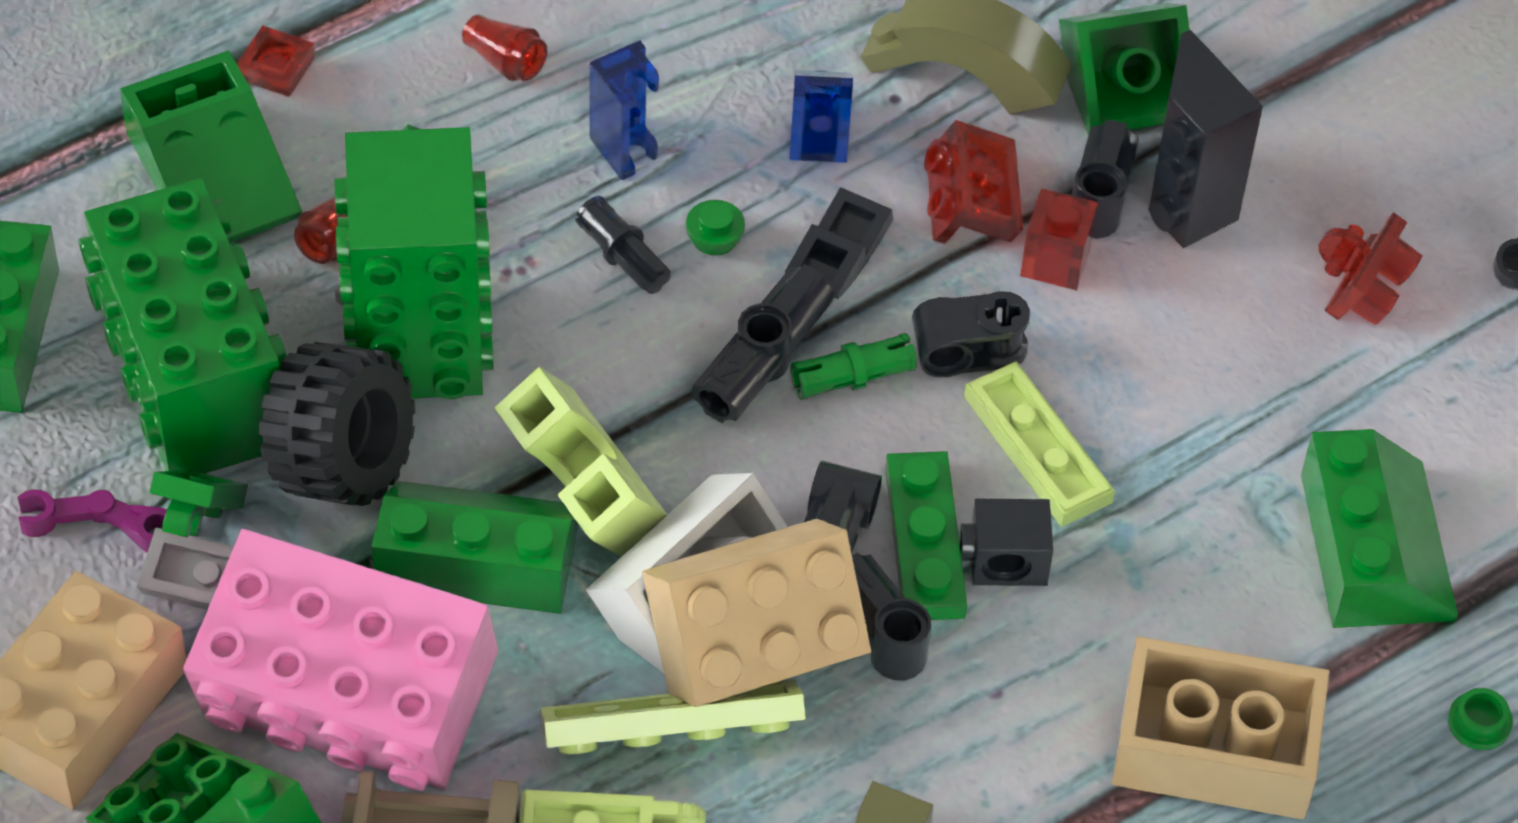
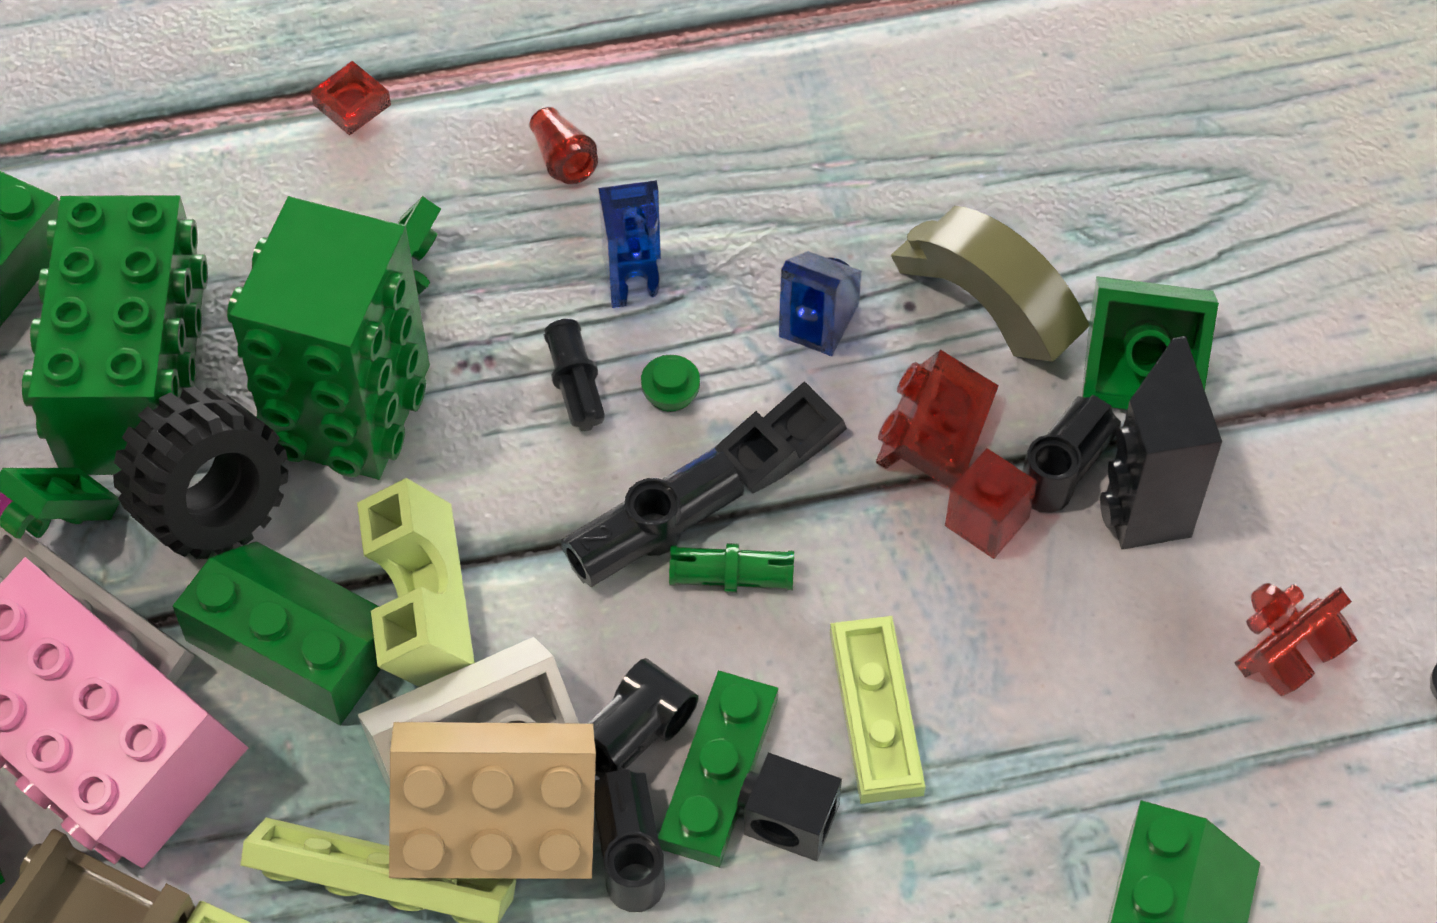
camera: 25 degrees right, 5 degrees up
(211, 128) = (238, 160): green slope -> none
(966, 336) = (854, 573): black piece -> none

